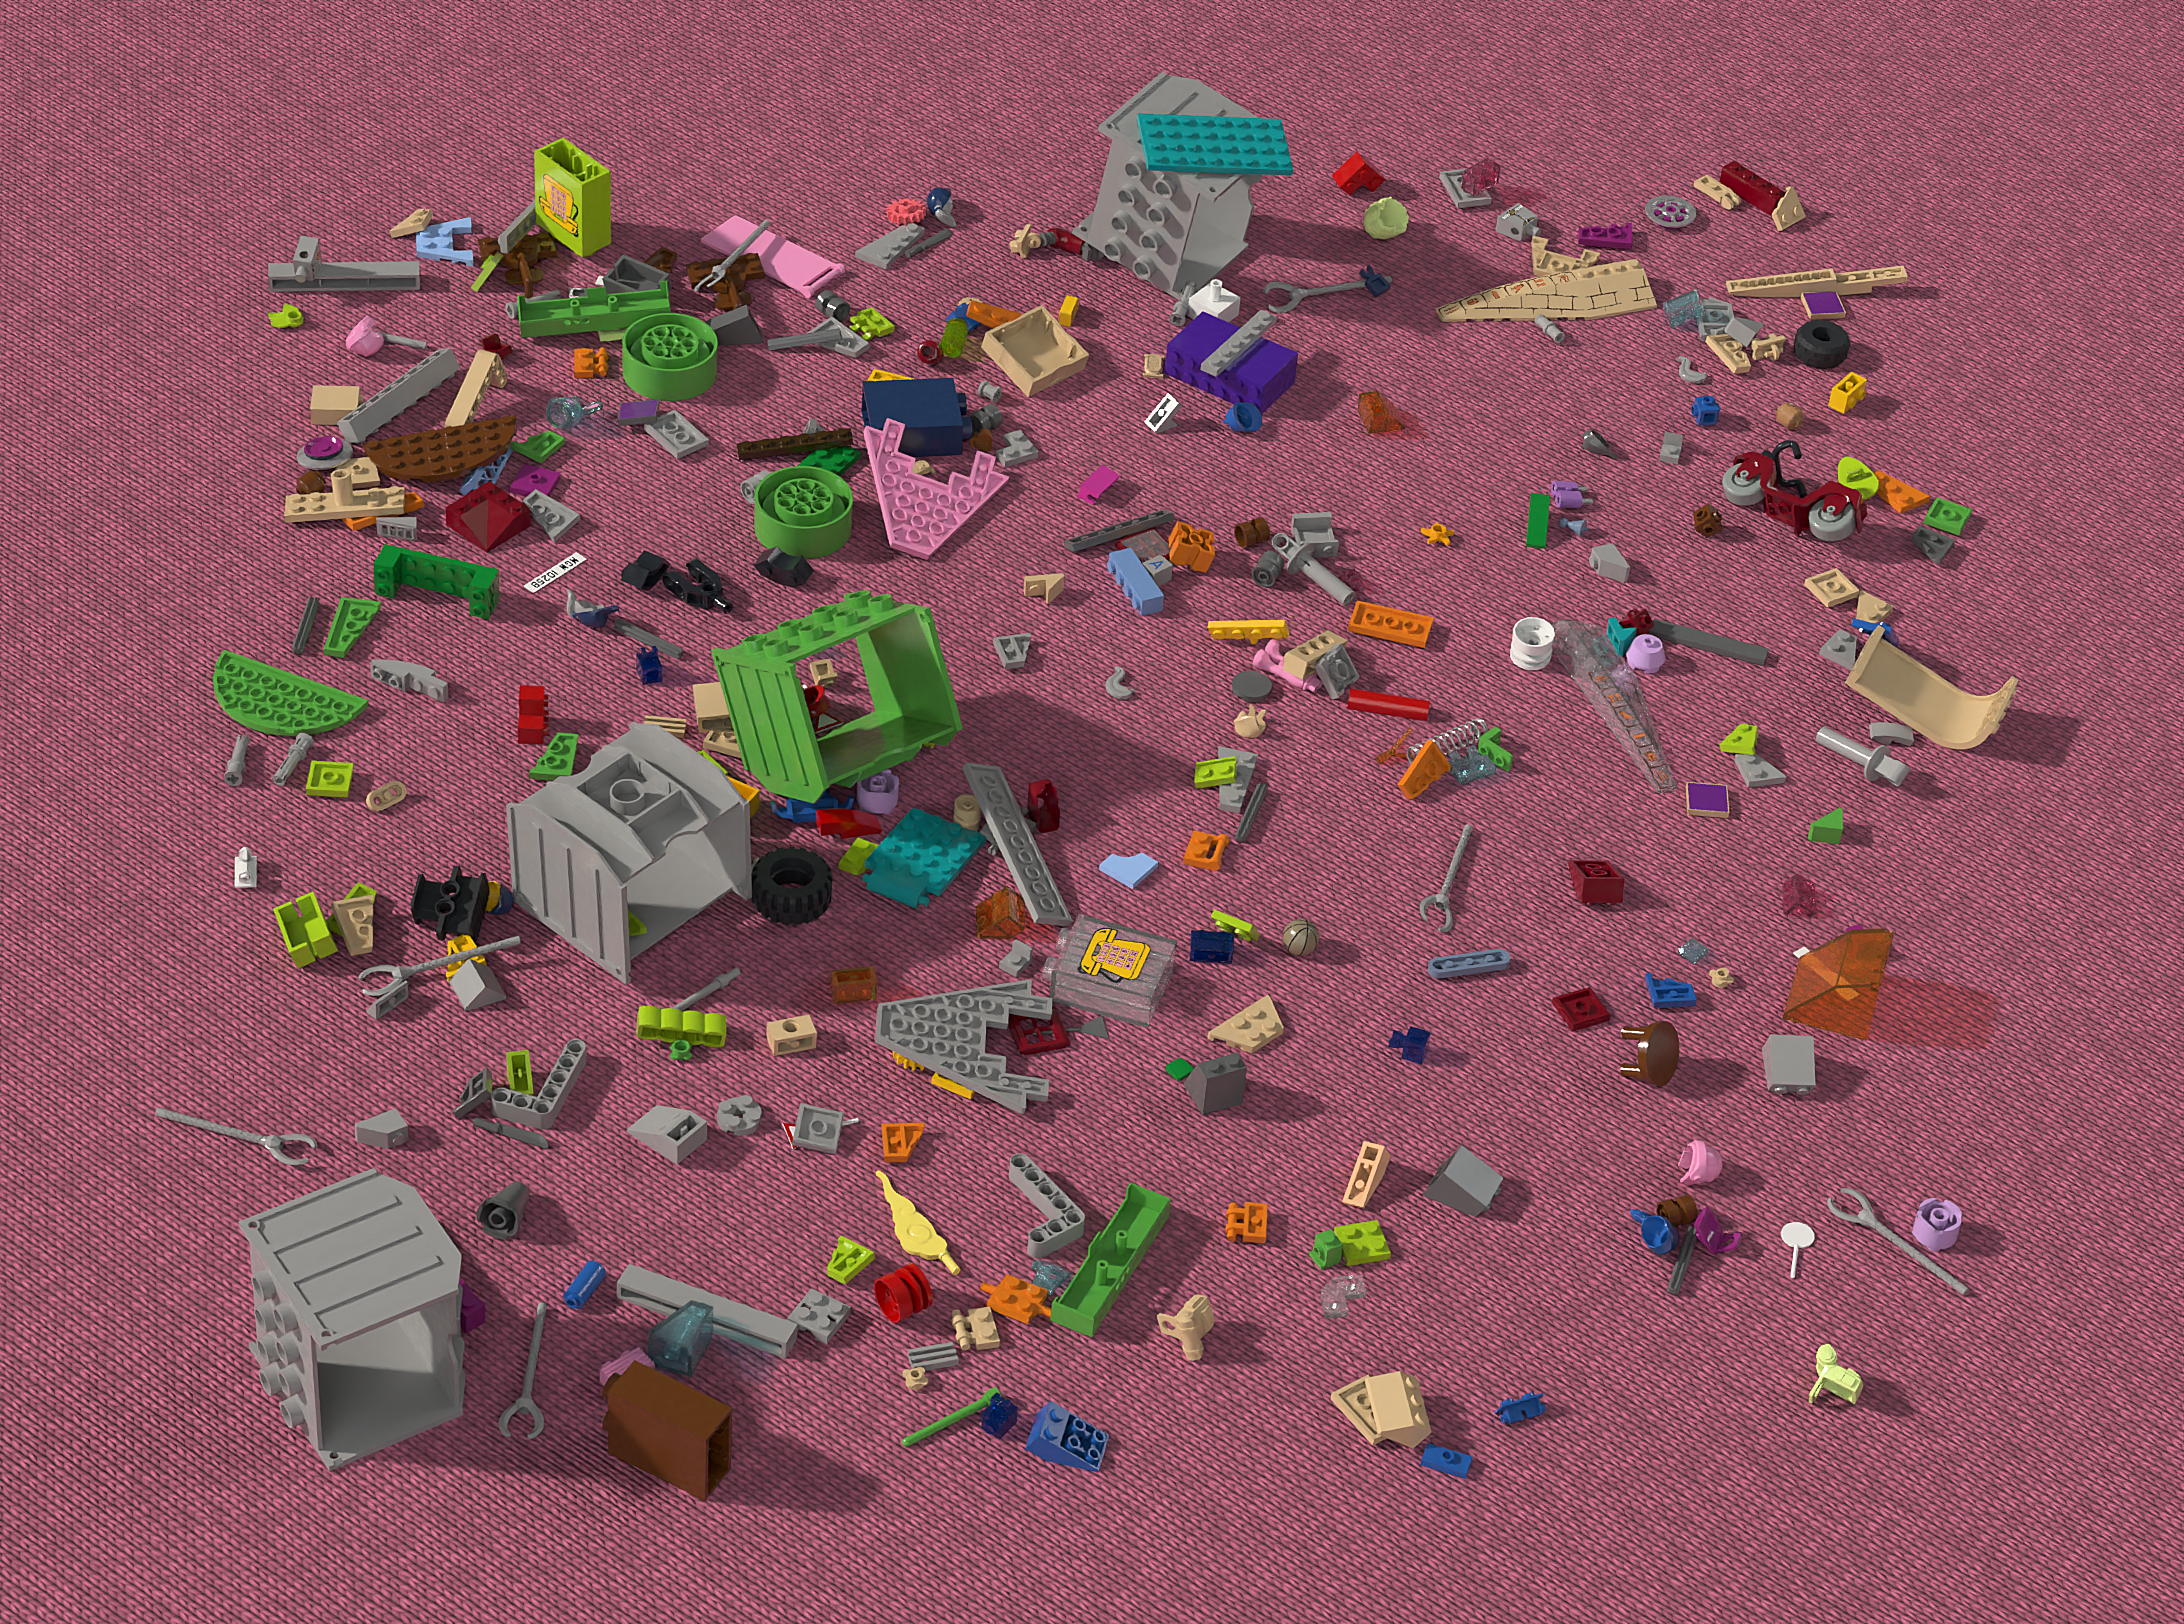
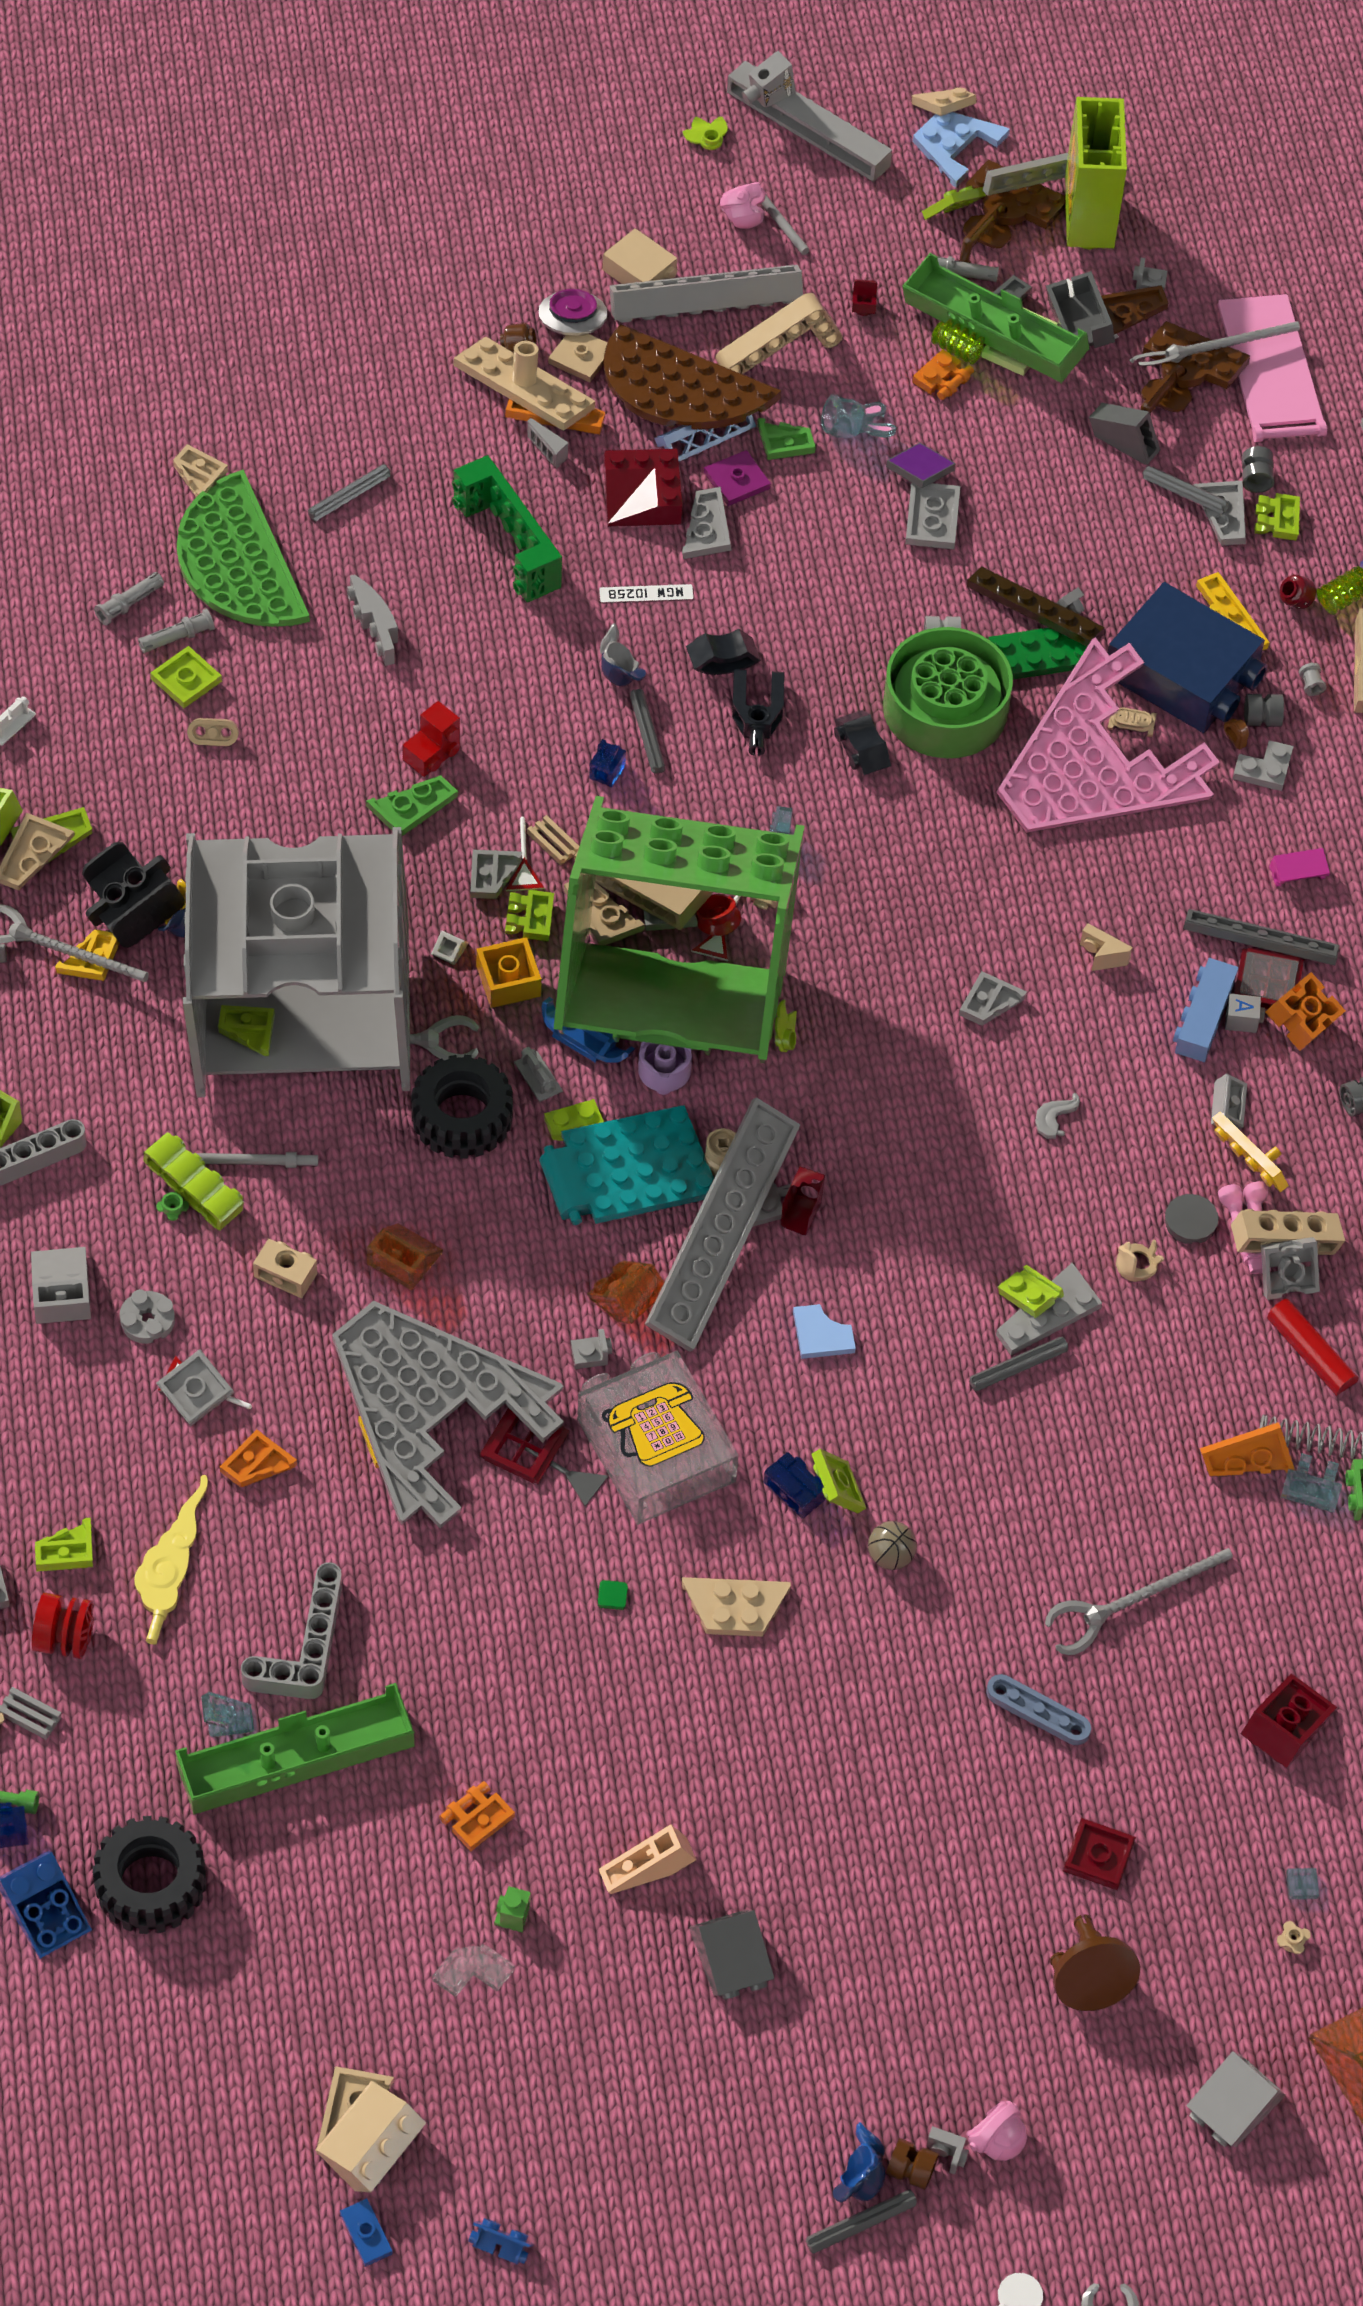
camera: 45 degrees right, 15 degrees up
(193, 668) = (198, 469): none -> tan wing
(348, 624) = (388, 518): bright green wing -> none
(476, 985) = (73, 996): light grey slope -> none
(583, 336) = (958, 342): none -> clear neon green piece
(646, 249) = (1148, 277): none -> light grey bracket
(669, 356) = (1017, 421): bright green wheel -> none
(818, 845) = (537, 1075): none -> light grey hinge
(846, 823) = (600, 1075): red slope -> none
(982, 1327) = (106, 1721): tan plate -> none
(1017, 1299) = (171, 1715): orange plate -> none
(1107, 1399) = (143, 1840): none -> black tyre
(1190, 1325) = (283, 1882): tan piece -> none
(1196, 618) = (1230, 1099): none -> light grey slope
(1199, 849) = (918, 1365): orange plate -> none
(1217, 1083) = (611, 1644): dark grey slope -> none
(1362, 1243) = (564, 1930): lime plate -> none
(1391, 752) = (1244, 1404): clear orange plant -> none
(1414, 1044) = (867, 1754): clear blue brick -> none
(1669, 992) = (1212, 1911): blue wing -> none
(1683, 1187) = (948, 2144): none -> light grey bracket
(1711, 1234) = (921, 2216): magenta piece -> none

